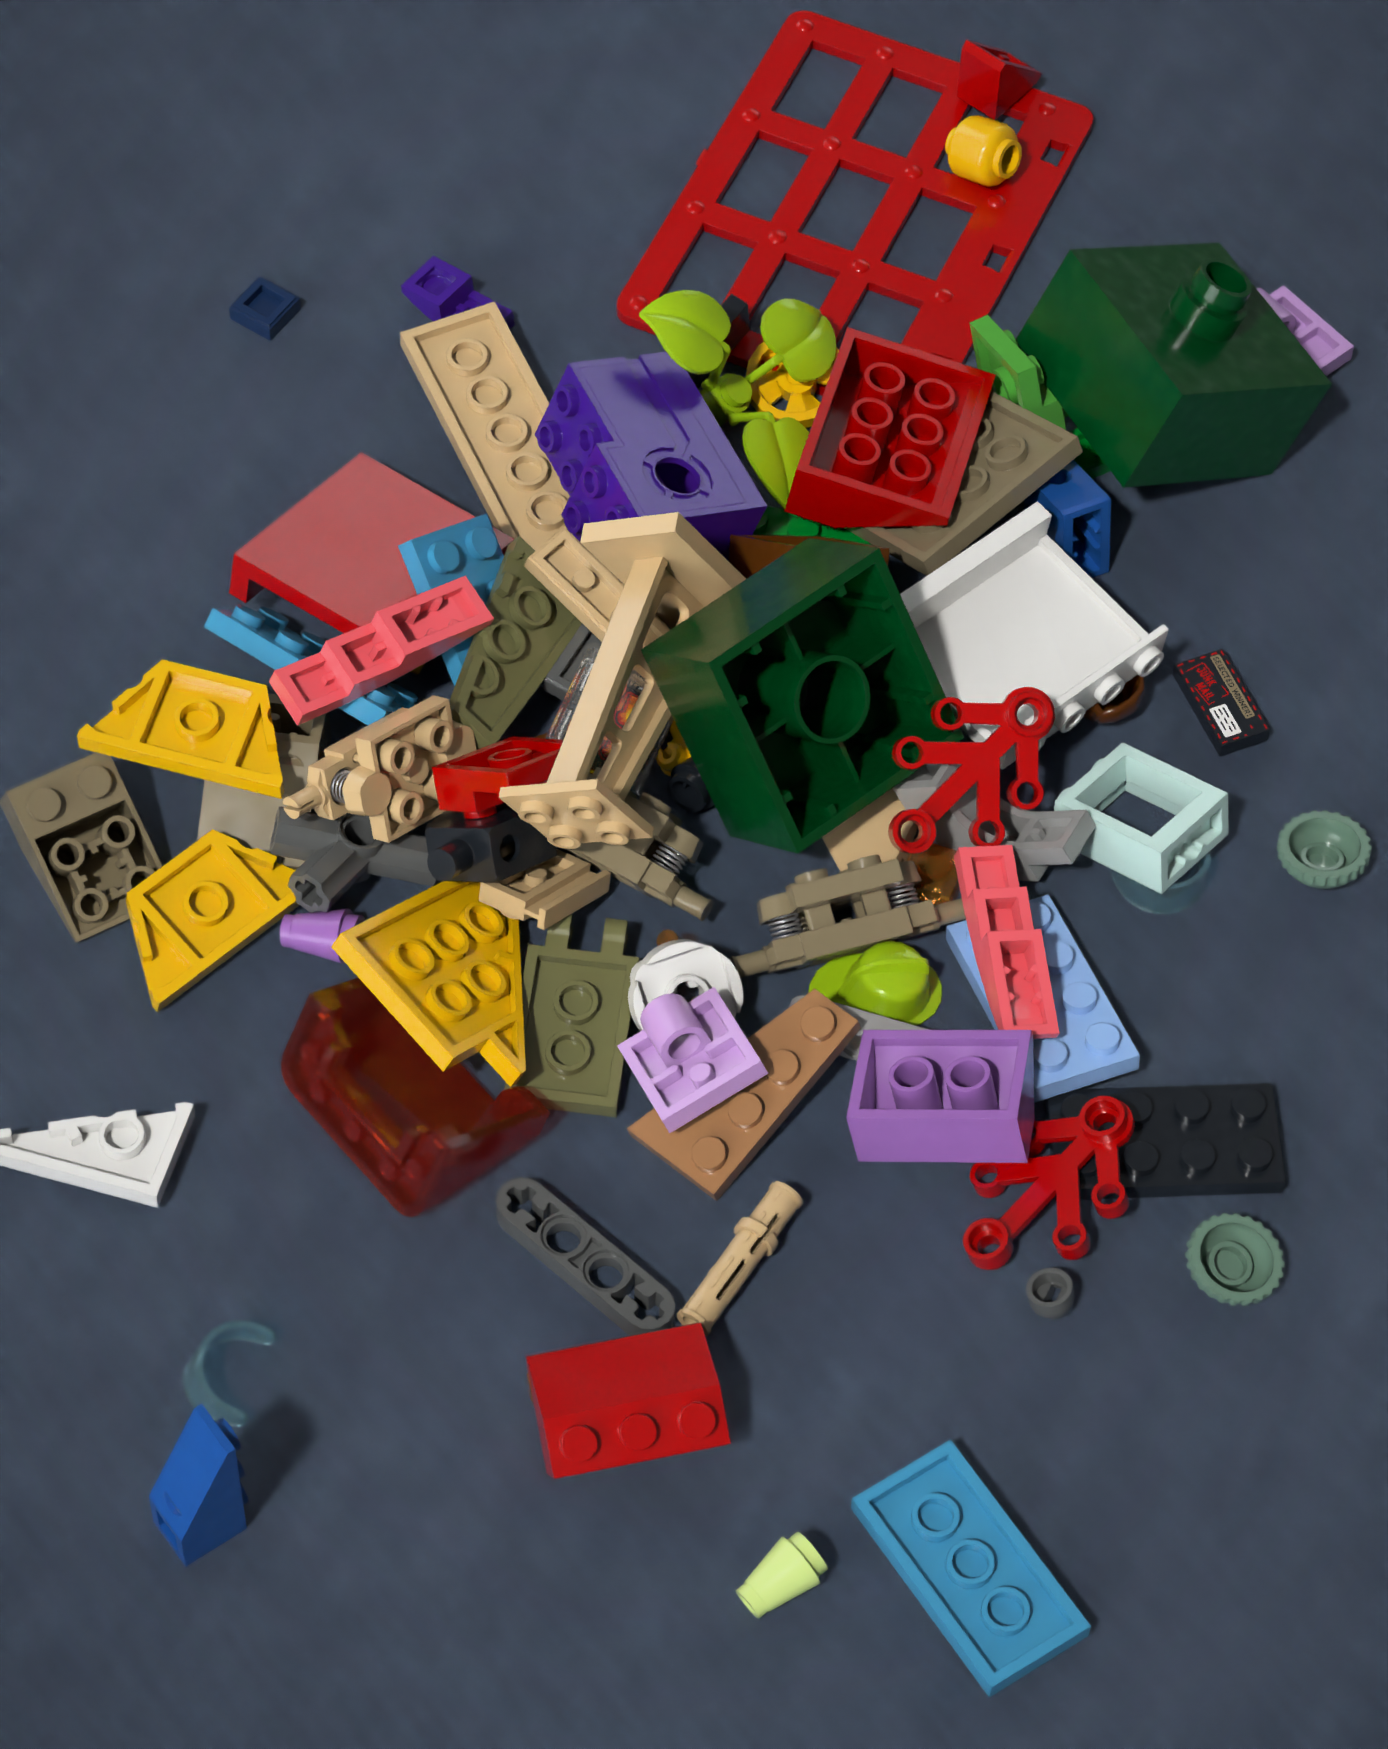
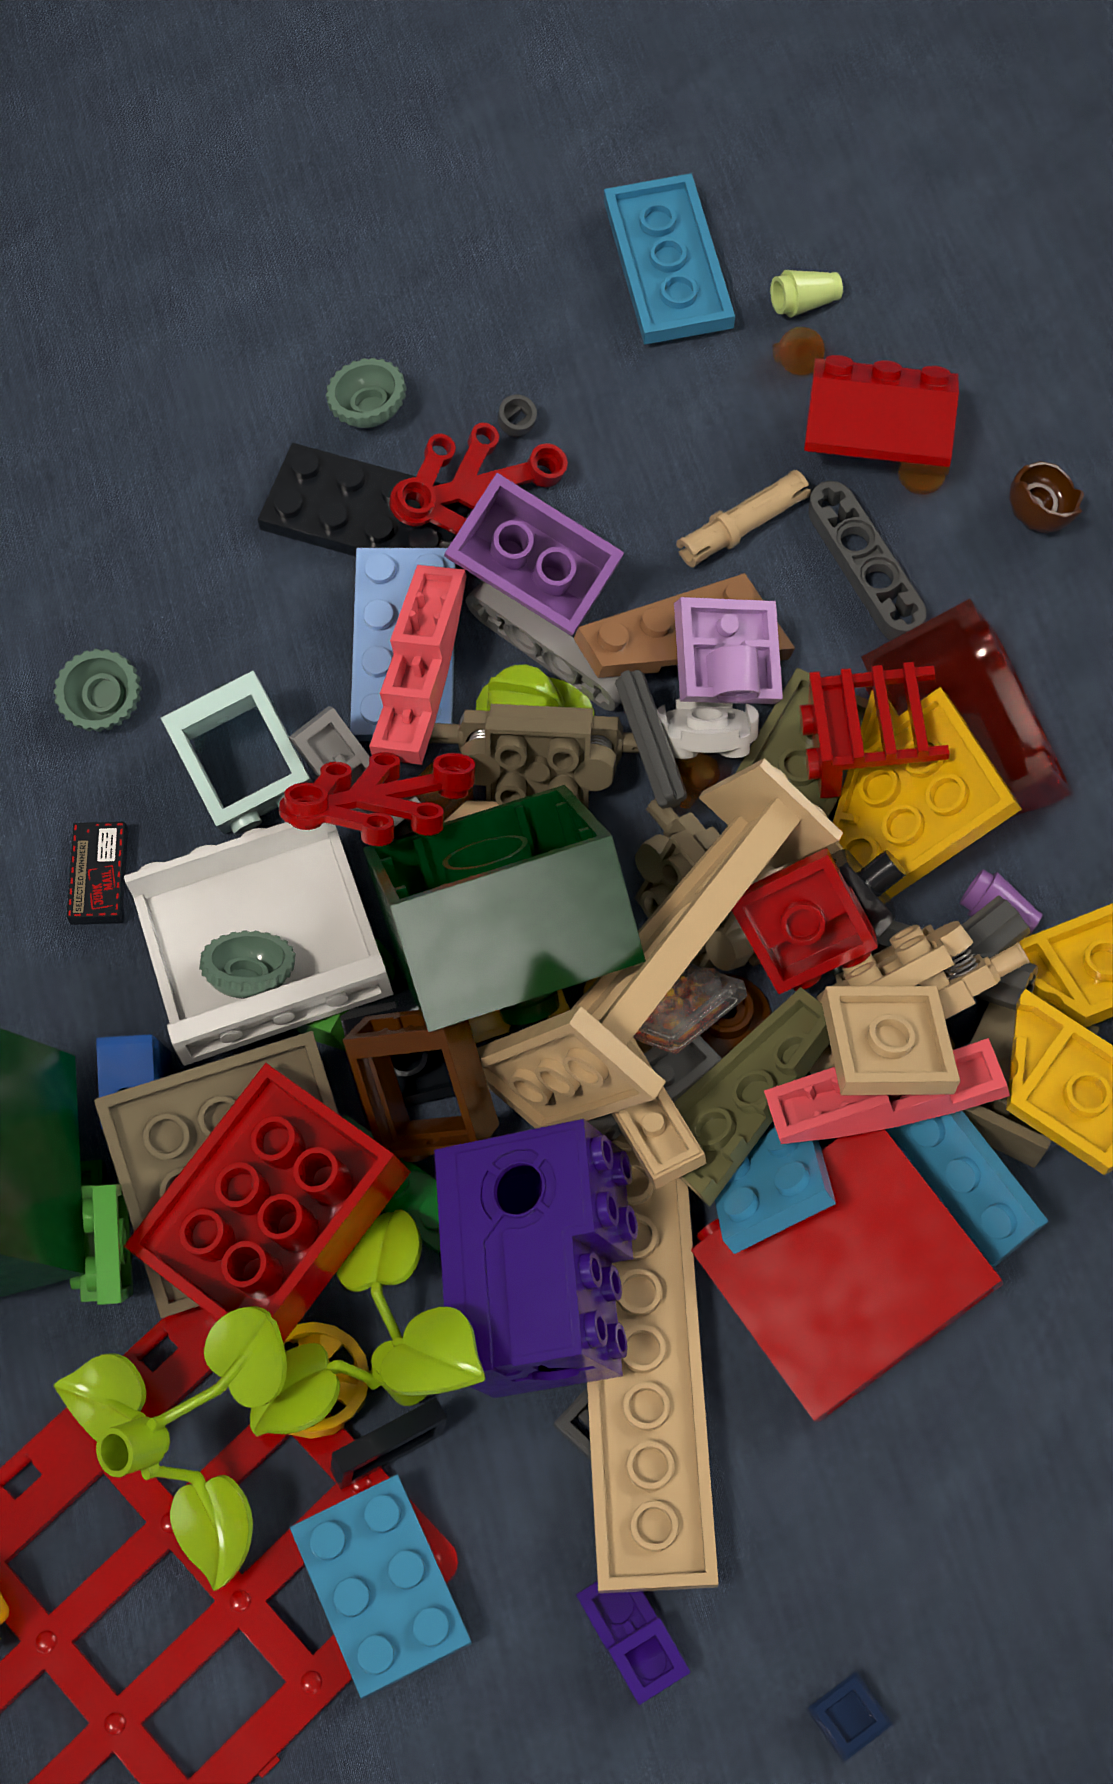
camera: 155 degrees left, 10 degrees up
(394, 652) = (889, 1040): none -> tan plate
(402, 1379) = (1044, 497): none -> reddish brown hair
(548, 990) = (836, 731): none -> red plate
(661, 252) = (380, 1586): none -> dark azure plate
(734, 941) = (651, 739): none -> dark grey axle
(758, 1496) = (798, 350): none -> clear orange plate
(895, 237) = (107, 1398): none -> lime plant
(1012, 592) = (247, 963): none -> sand green hat

